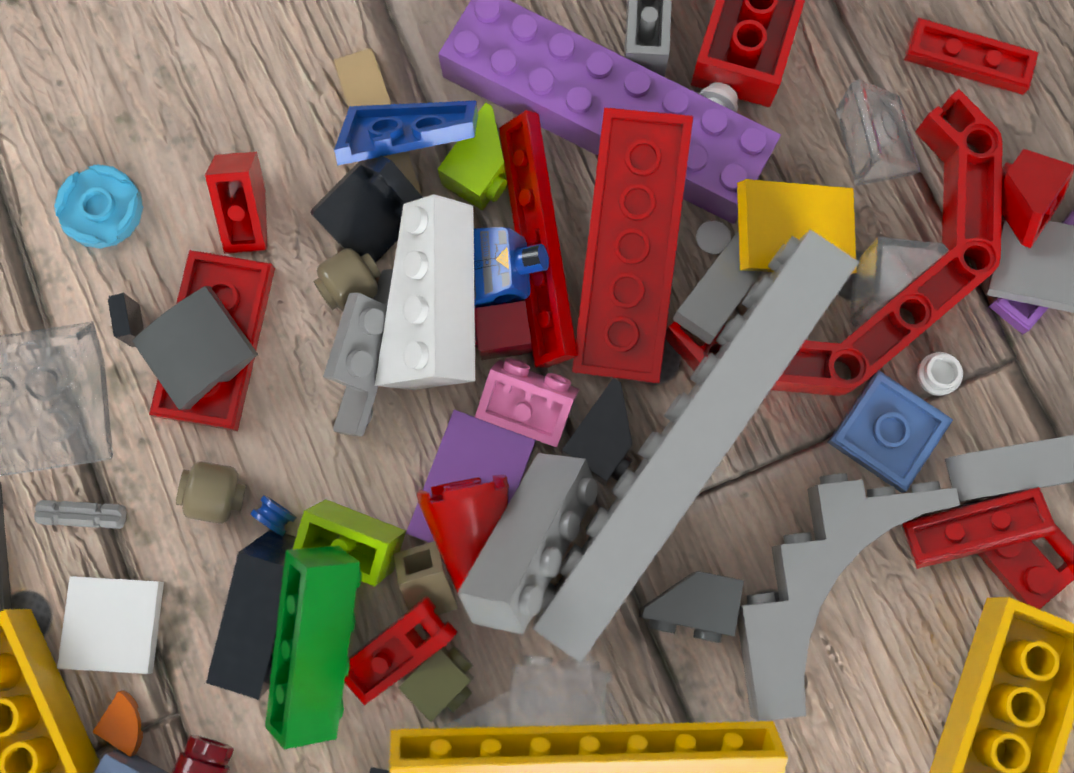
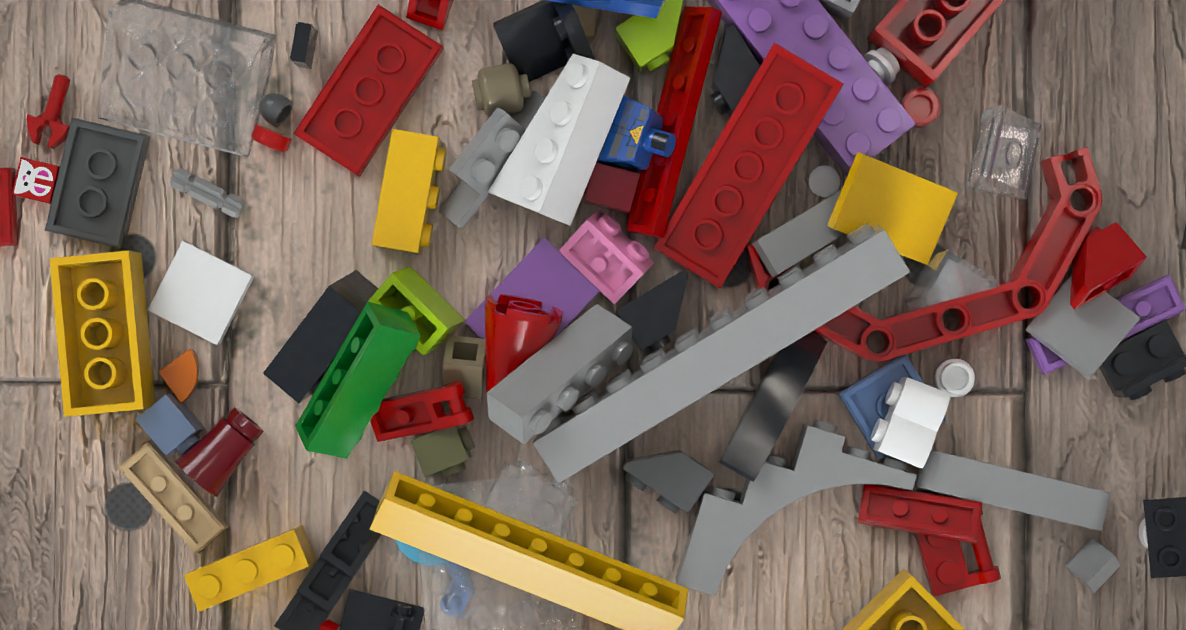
camera: 20 degrees right, 10 degrees up
(121, 396) = (275, 108): none -> dark grey hinge
(126, 428) = (271, 138): none -> red tile
(194, 347) = (352, 95): dark grey slope -> none
(210, 492) = (320, 221): dark tan head -> none
(273, 515) = (363, 261): blue bush -> none
(292, 423) = (408, 192): none -> yellow brick
(575, 166) = (733, 72): none -> black slope
(769, 483) = (771, 406): none -> black slope
(779, 120) = (922, 106): none -> red tile
(922, 434) = (910, 421): none -> white brick
(971, 56) = (1121, 116): red tile -> none

